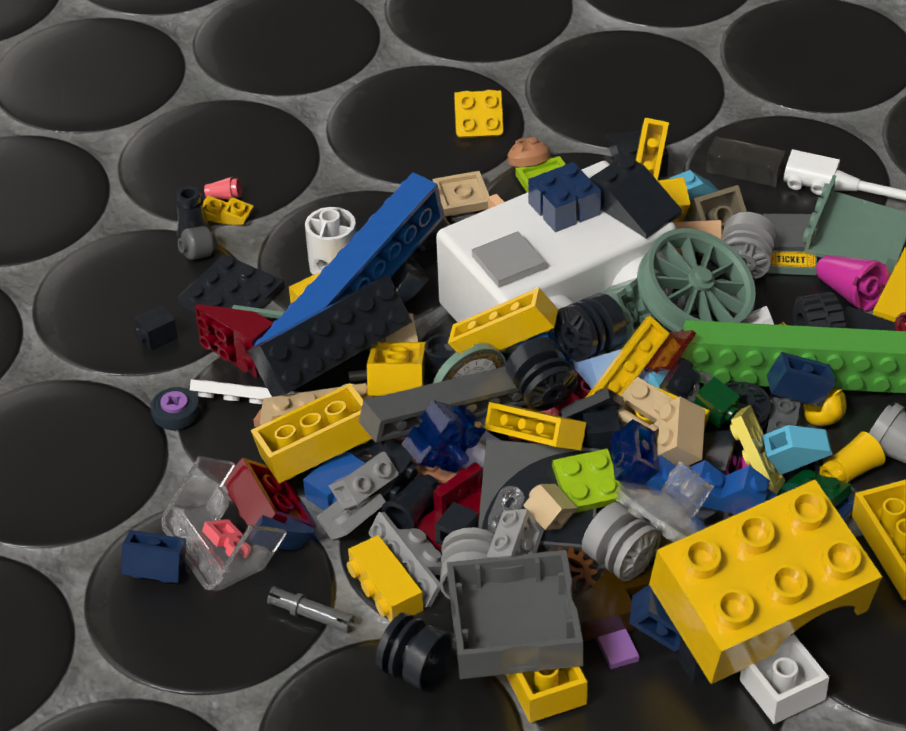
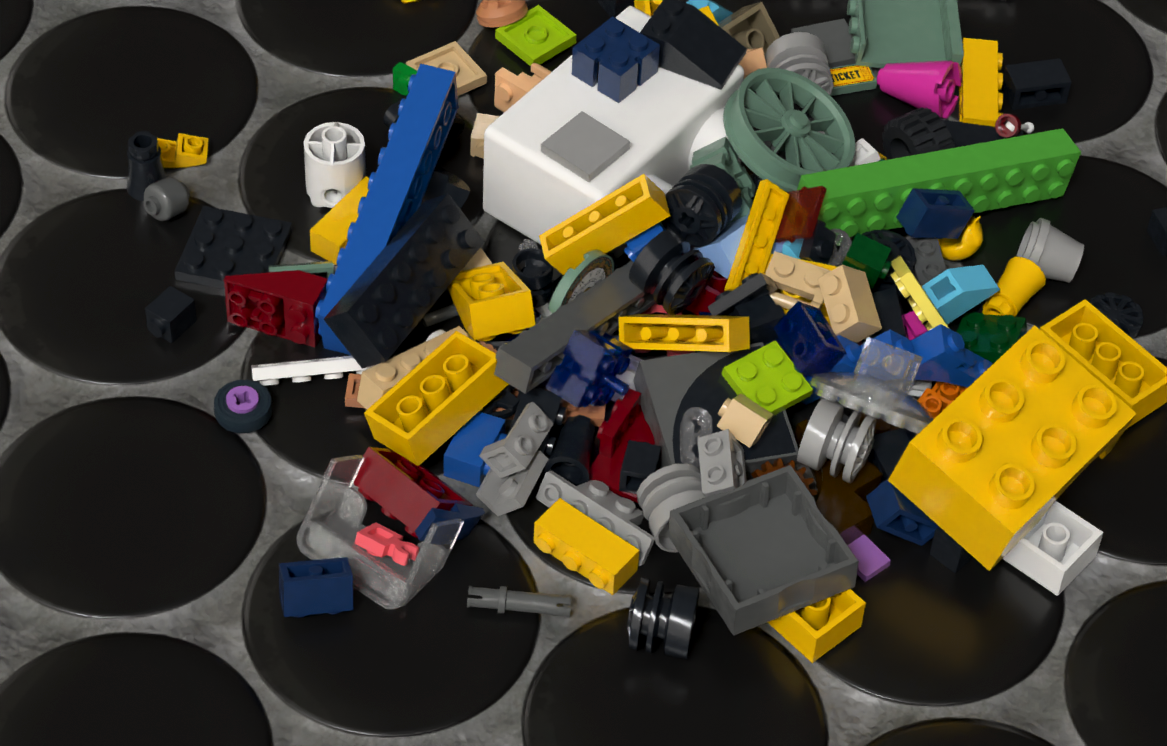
camera: 25 degrees left, 5 degrees up
(224, 189) = (163, 124): coral cone -> none

